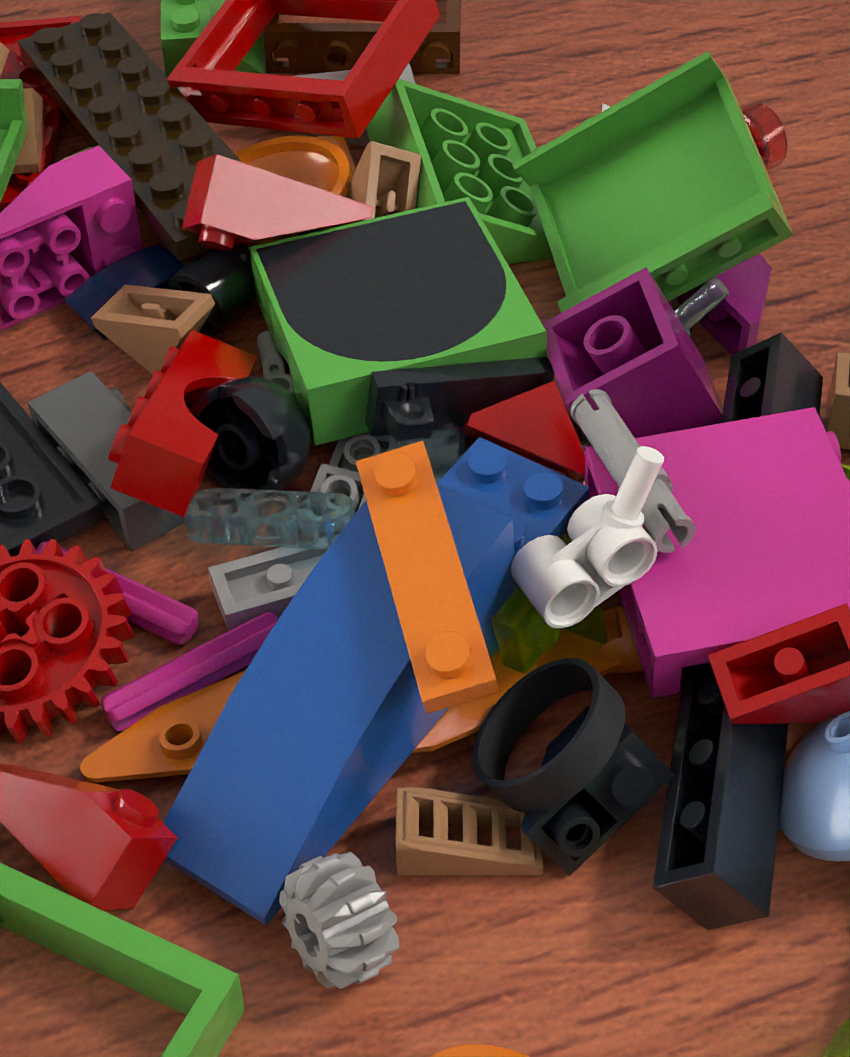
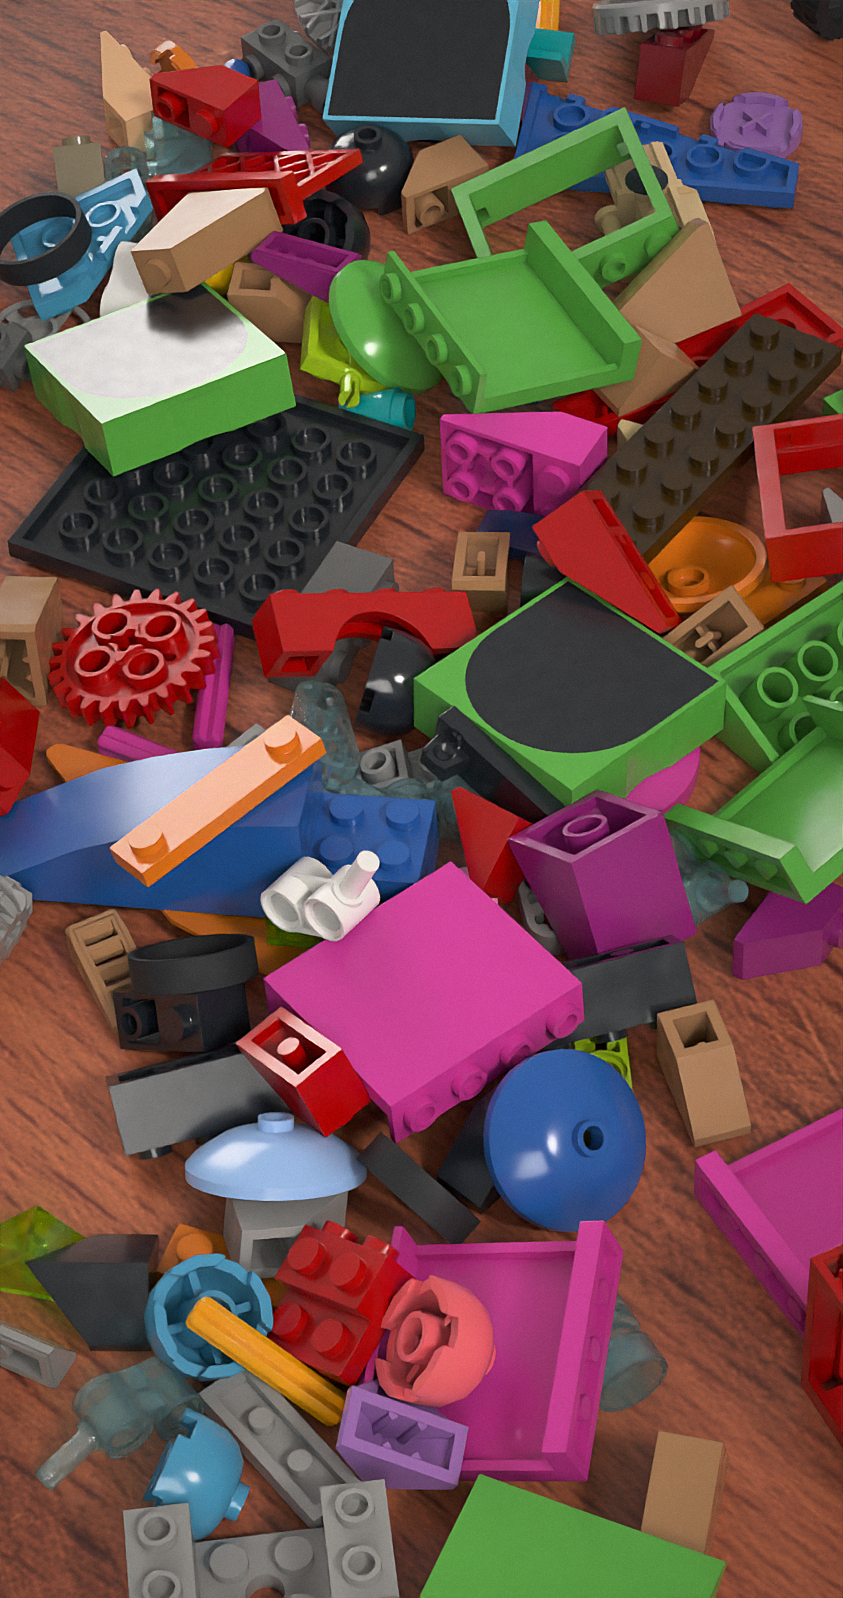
camera: 65 degrees right, 0 degrees up
(616, 450) = (406, 901): light grey pin -> none

